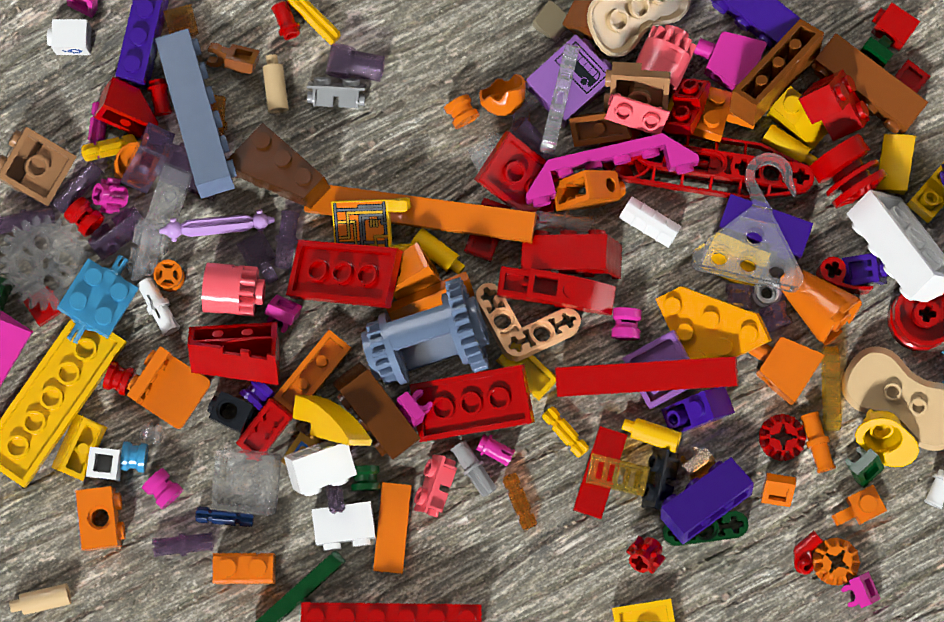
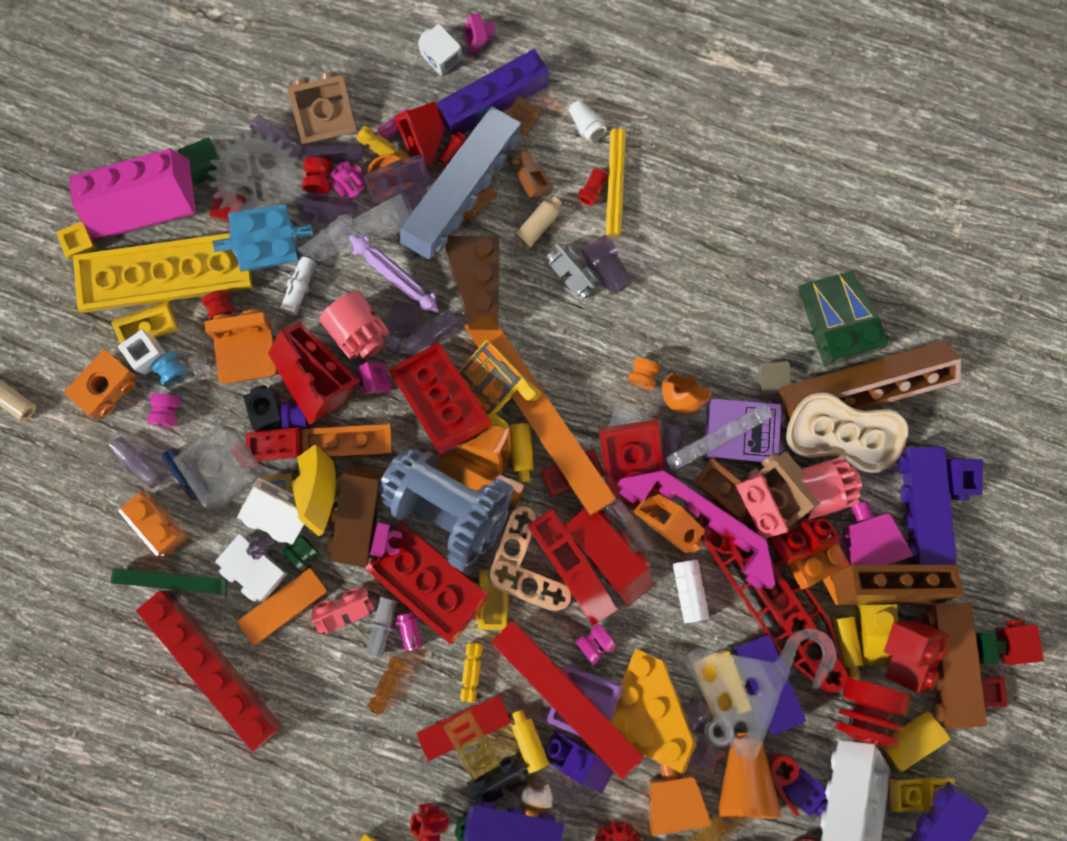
camera: 45 degrees right, 0 degrees up
(165, 271) = (325, 268): orange wheel -> none

